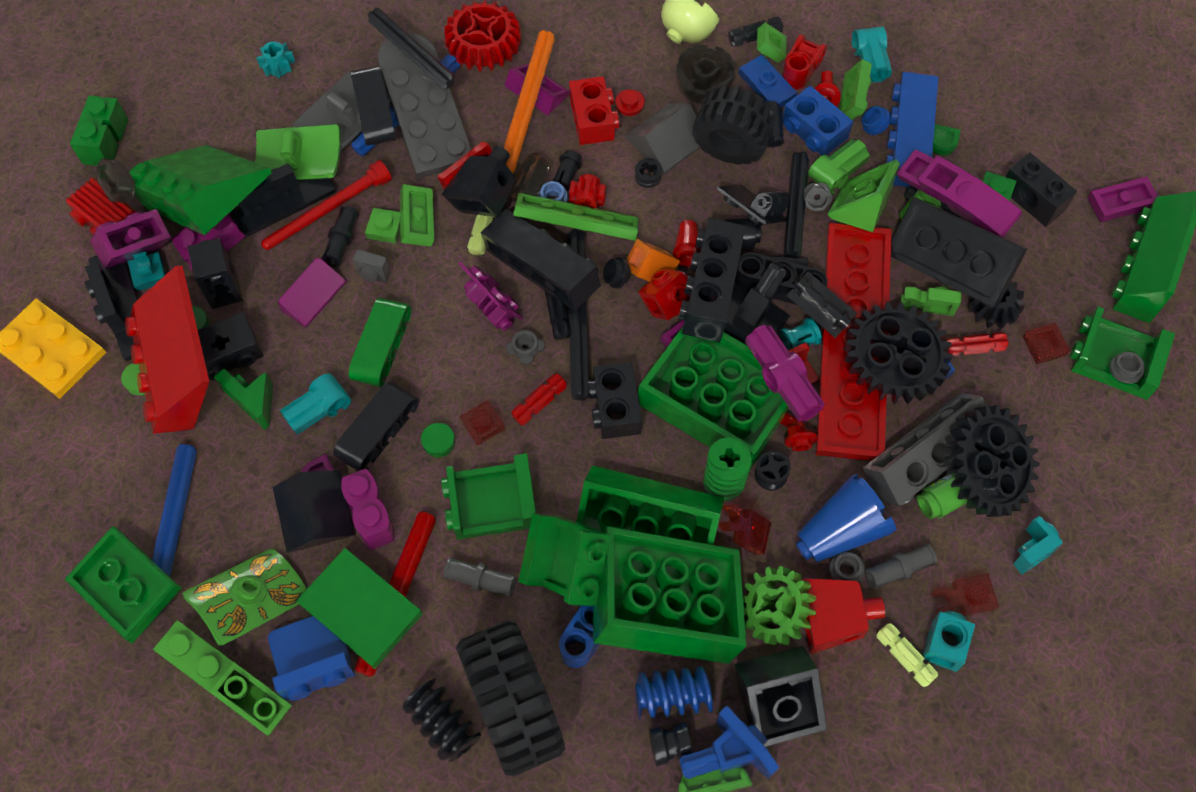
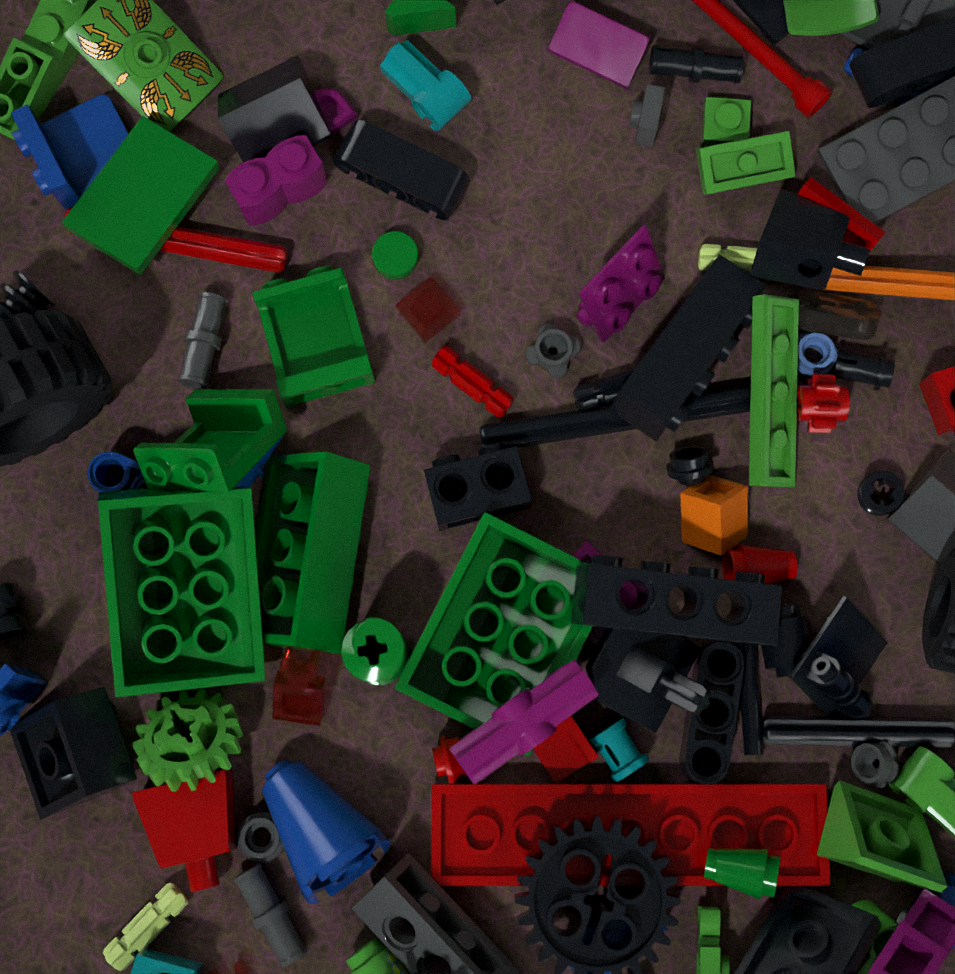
camera: 85 degrees right, 15 degrees up
(378, 342) = (531, 148): green beam -> none
(665, 293) = (660, 537): red brick -> none
(673, 692) = (62, 608): blue piece -> none
(776, 464) = (392, 714): black wheel -> none
(821, 304) = (663, 777): black hinge -> none
(882, 267) = (744, 870): none -> green cone

